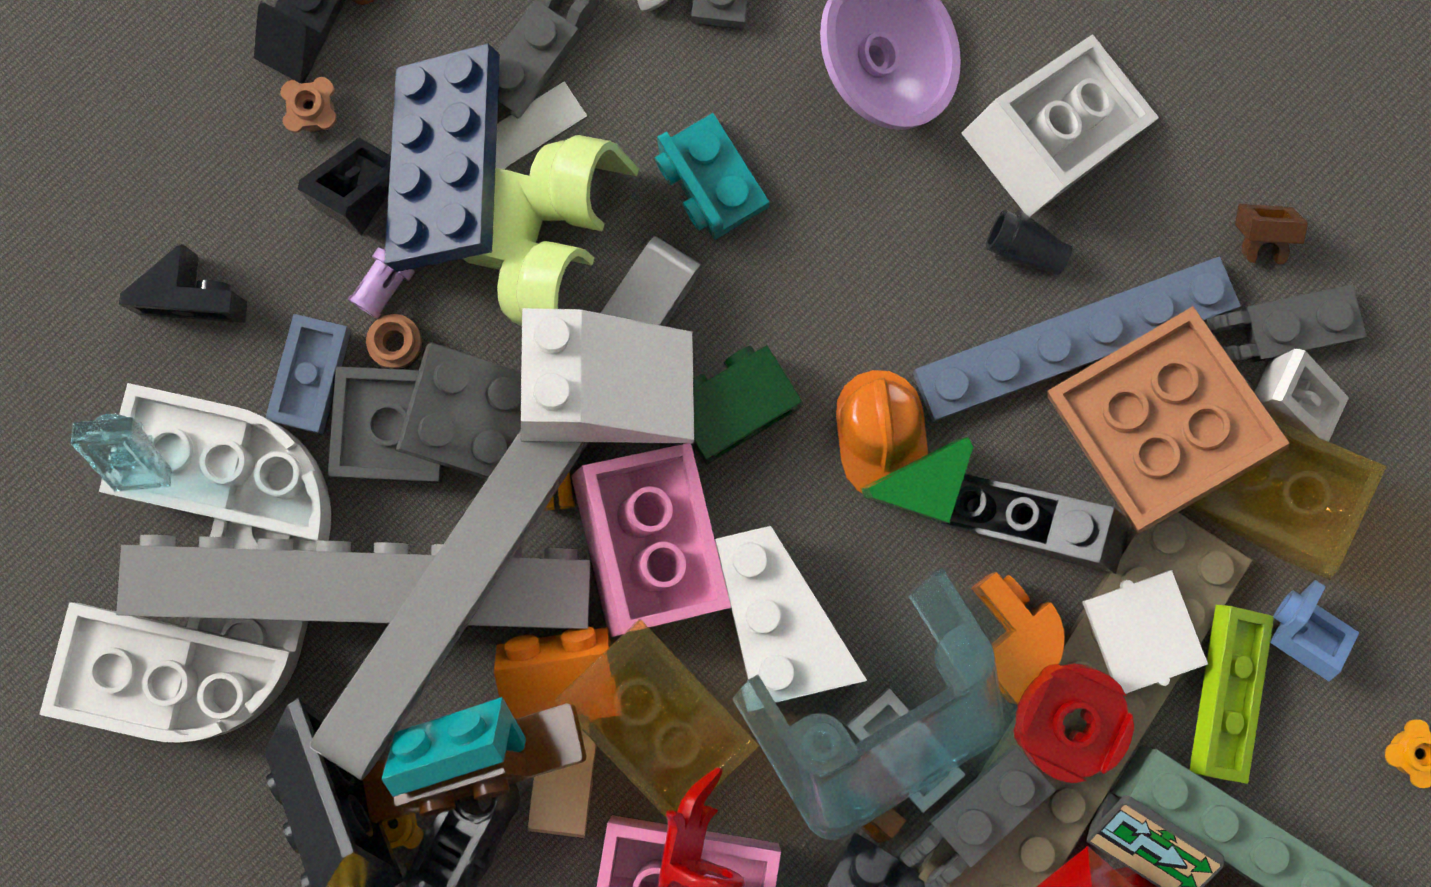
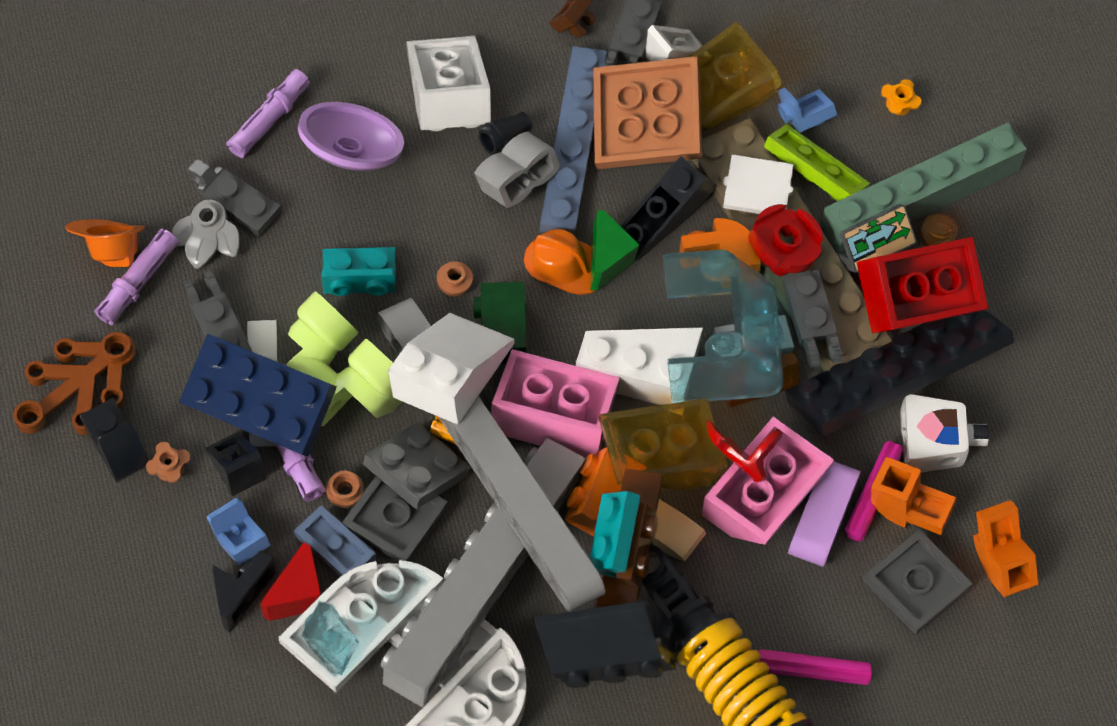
camera: 65 degrees left, 20 degrees down
(223, 364) = (294, 589): none -> red slope
(255, 248) = (237, 531): none -> medium blue bracket
(764, 320) = (454, 287): none -> nougat plate
(974, 293) = (517, 169): none -> light grey brick

